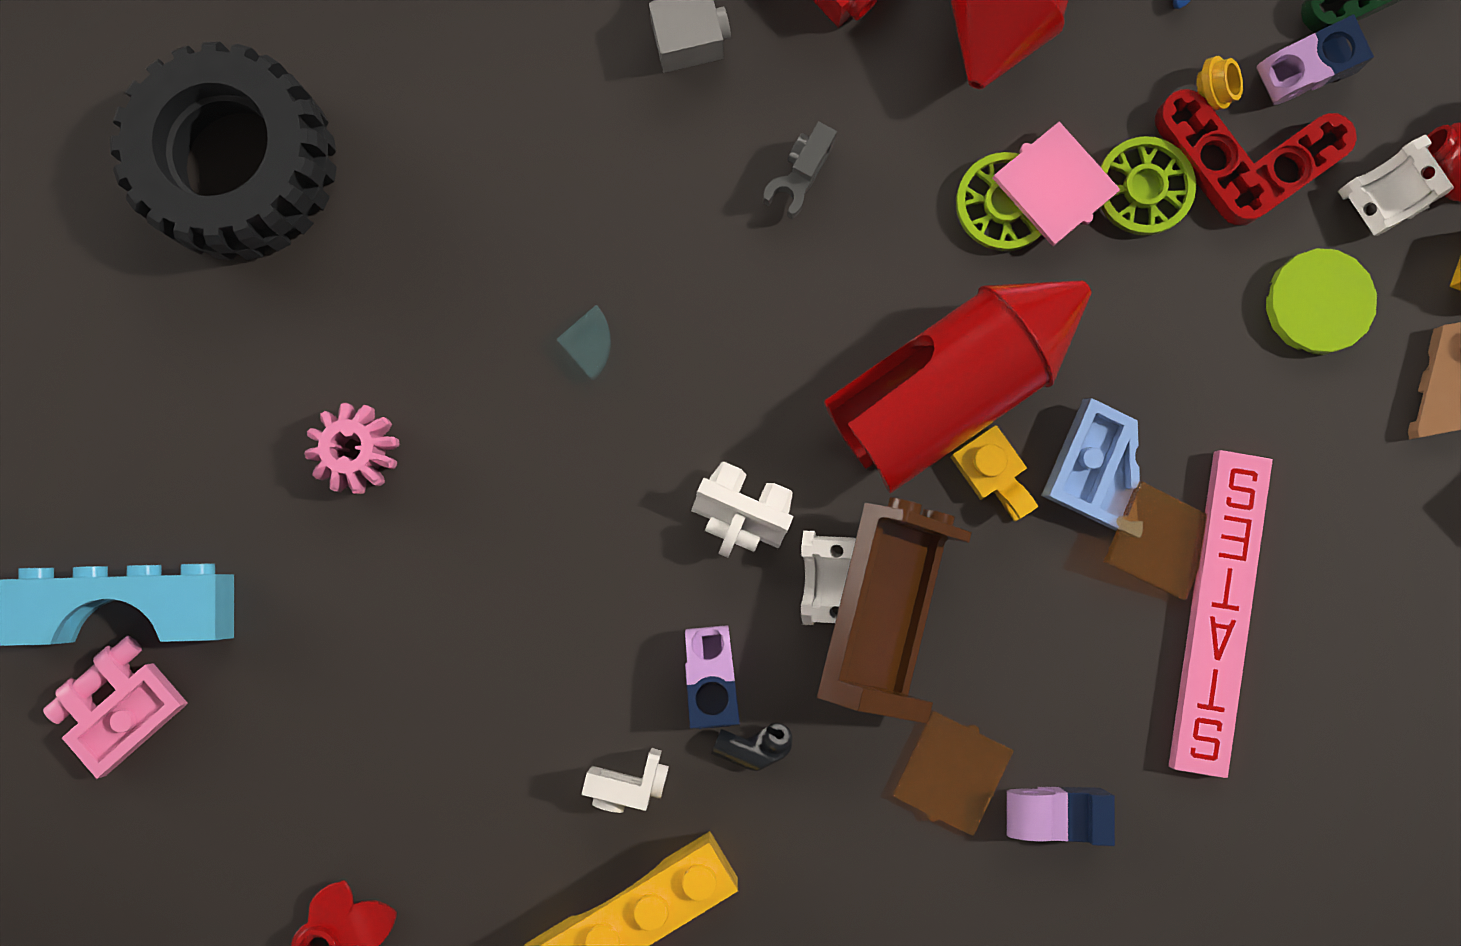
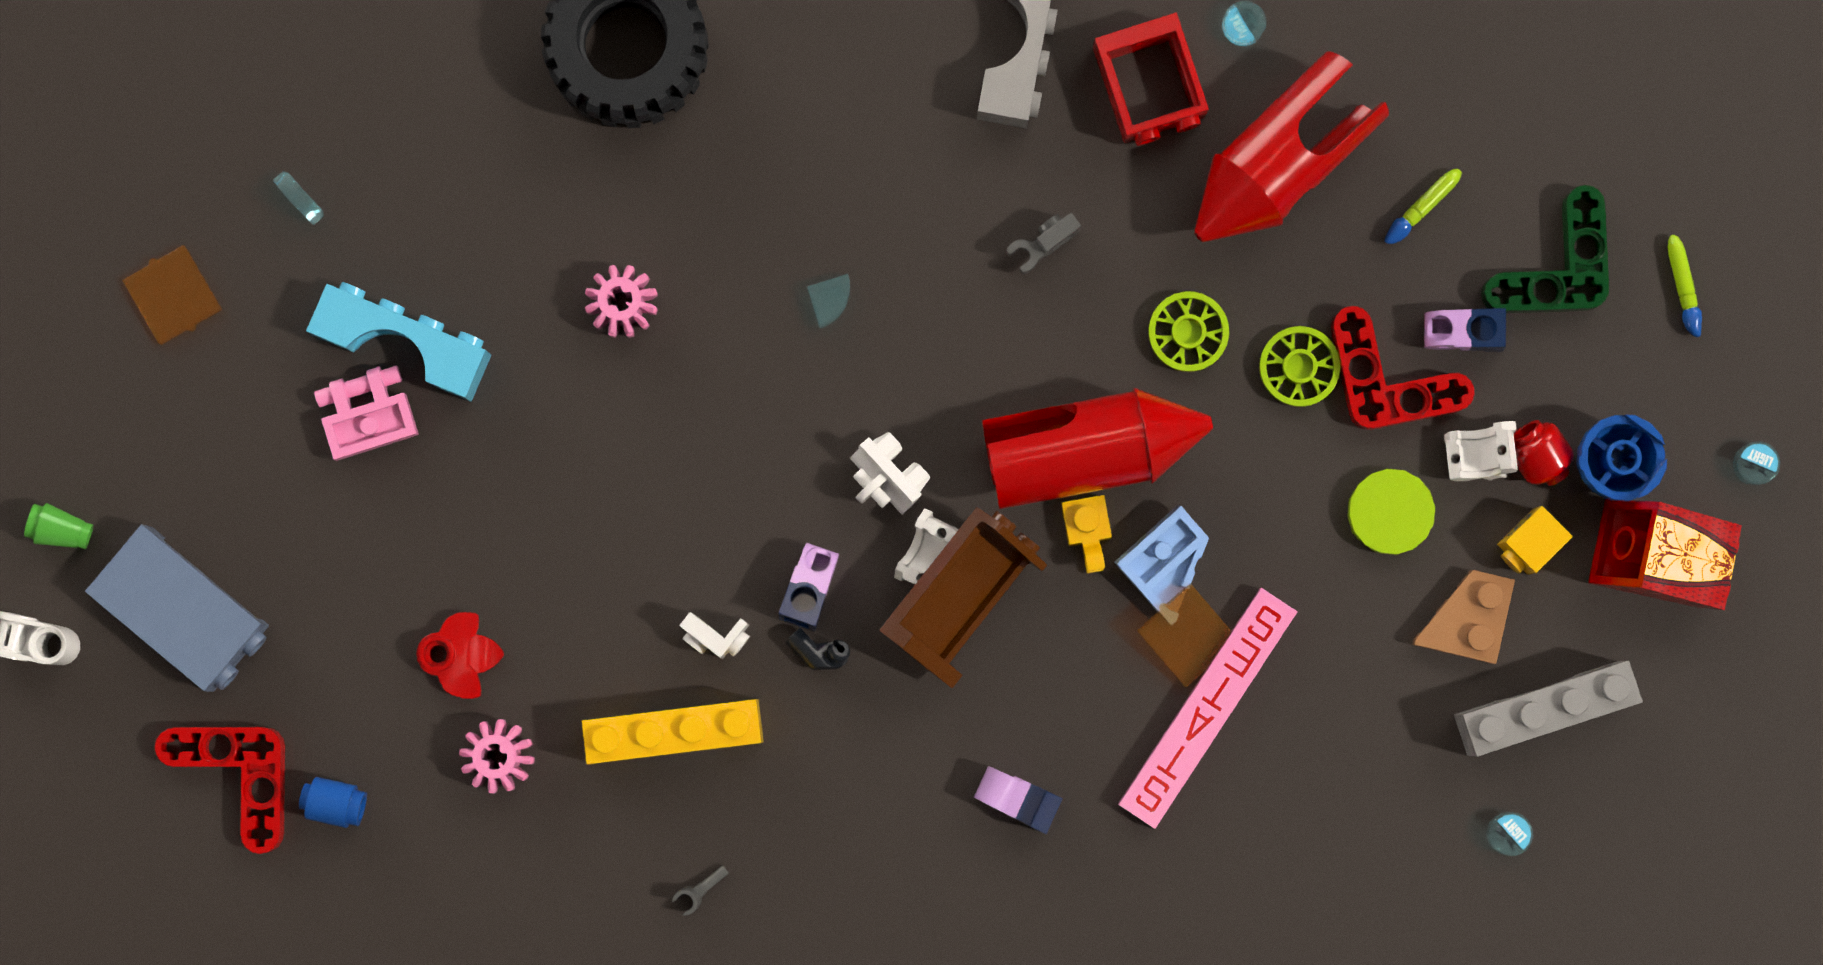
camera: 25 degrees right, 0 degrees up
(953, 773) = (956, 736): clear orange piece -> none
(1056, 183) = (1230, 335): bright pink piece -> none
(1220, 82) = (1390, 313): yellow plate -> none

